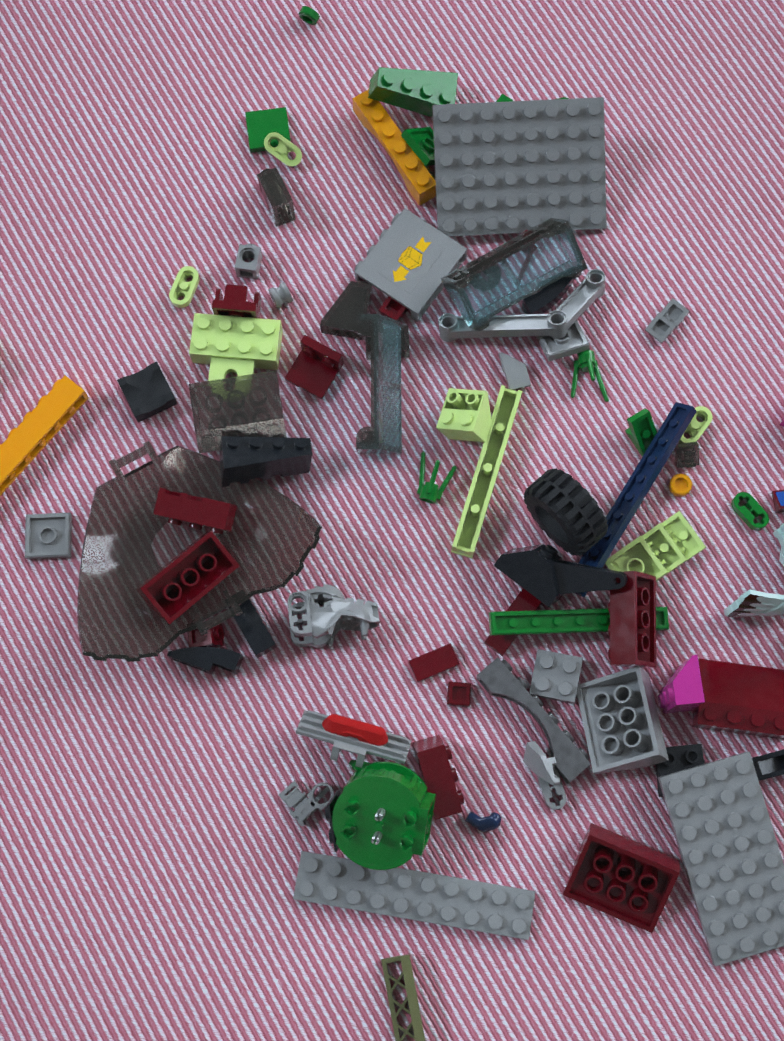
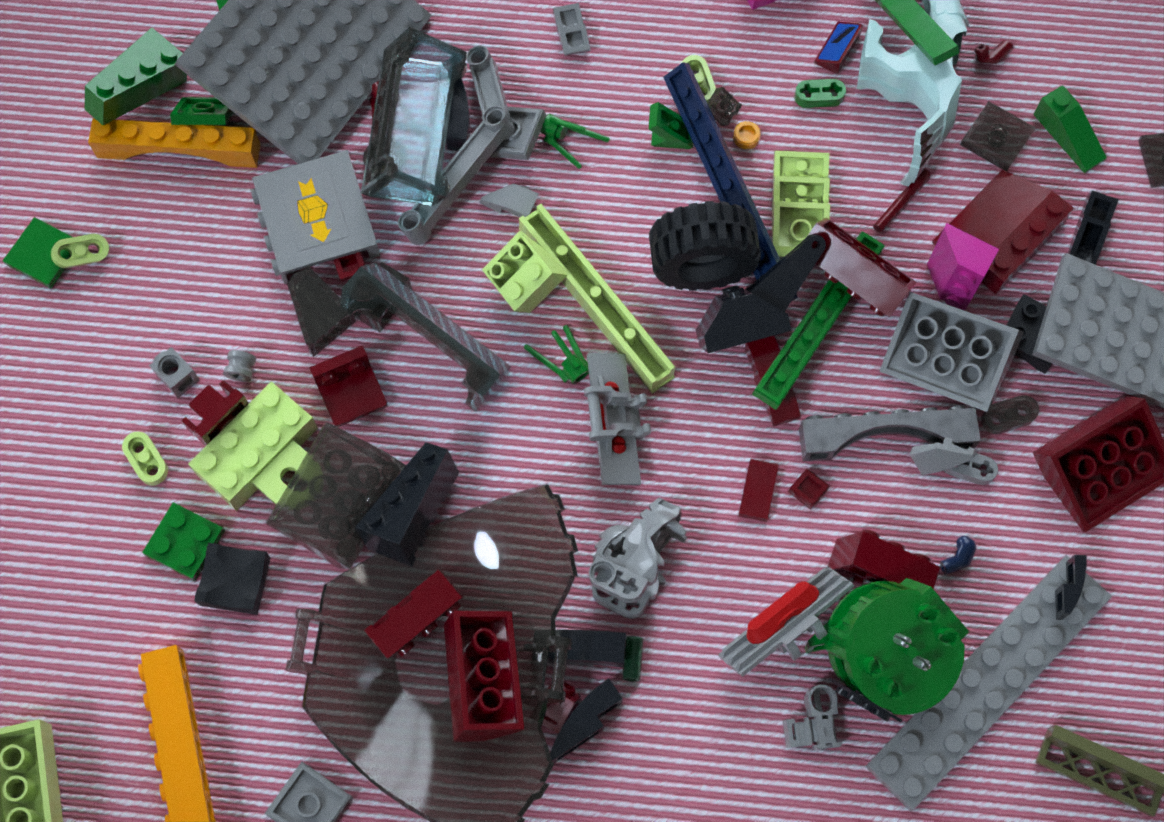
camera: 55 degrees left, 5 degrees down
(151, 345) = (182, 541): none -> green plate
(267, 660) = (632, 658): none -> clear green axle
(276, 196) = (126, 292): clear smoke slope -> none
(414, 541) = (614, 418): none -> light grey piece
(503, 908) = (1068, 594): none -> black slope
(556, 676) = (858, 381): light grey plate -> none
(607, 791) = (1008, 415): none -> clear smoke plate
(712, 618) = (901, 201): none -> dark red bar

